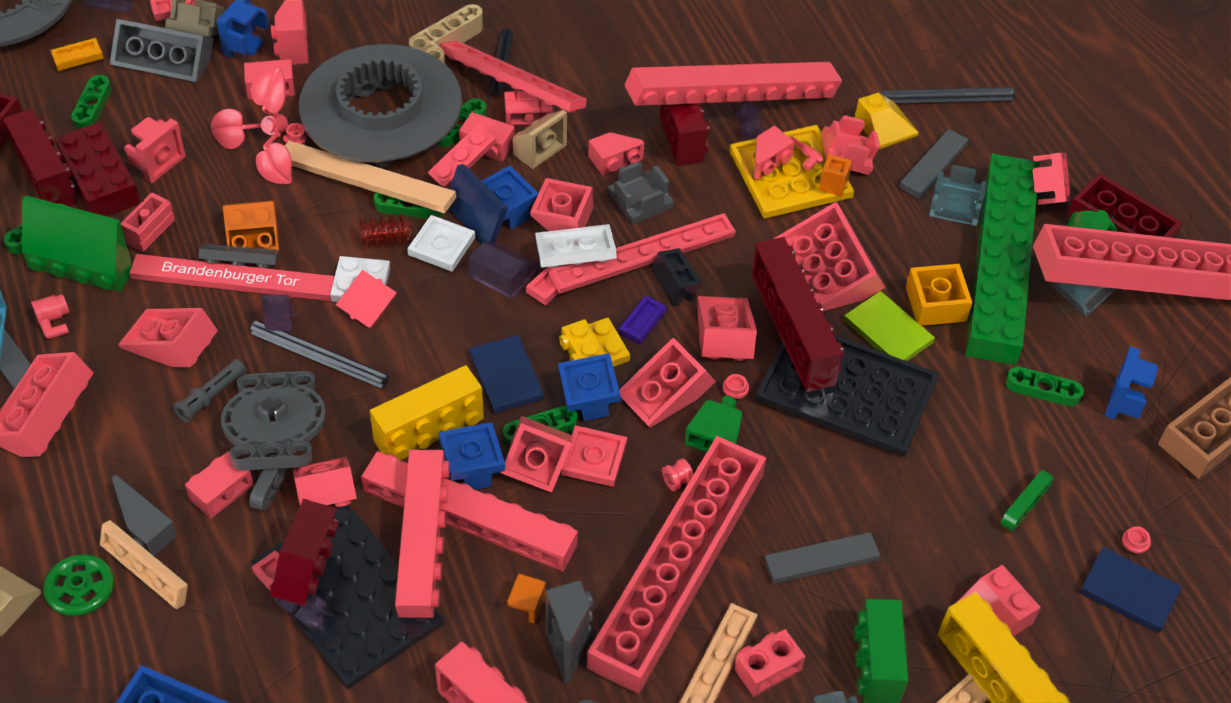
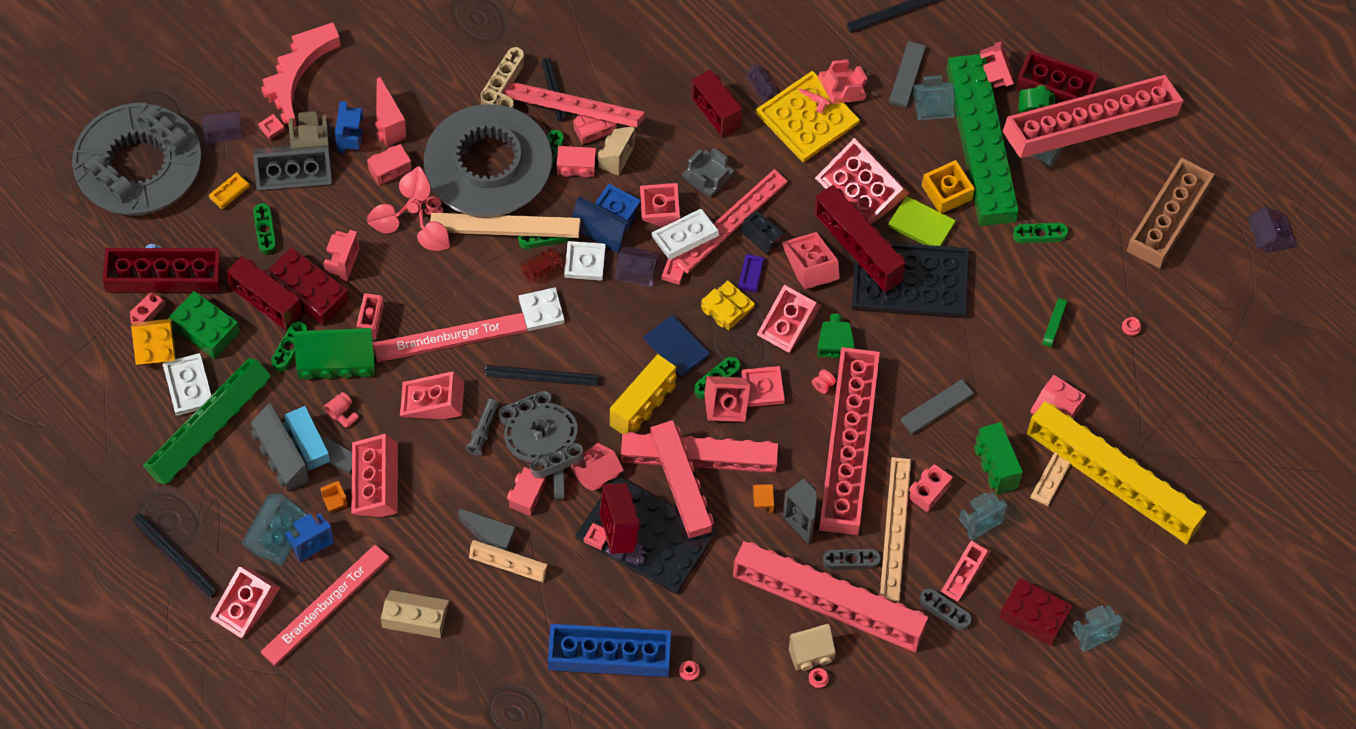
camera: 20 degrees left, 10 degrees up
(78, 605) = (479, 602): green plate -> none
(239, 255) = (448, 319): dark grey plate -> none
(252, 224) = (444, 293): orange slope -> none
(278, 312) = (503, 356): clear purple slope -> none
(366, 299) = (555, 323): coral piece -> none
(466, 152) = (568, 186): coral plate -> none
(472, 454) = (686, 412): blue panel -> none
(589, 385) = (740, 337): blue panel -> none
(614, 152) = (674, 143): coral slope -> none
(731, 83) = (744, 61): coral brick -> none
(736, 386) = (835, 303): coral plate -> none
(771, 151) = (790, 107): coral slope -> none
(835, 175) = (844, 113): orange panel -> none
(884, 118) = (859, 49): yellow slope -> none
(1131, 589) = (1137, 361): dark blue tile -> none
(1132, 371) = (1097, 213): blue panel -> none

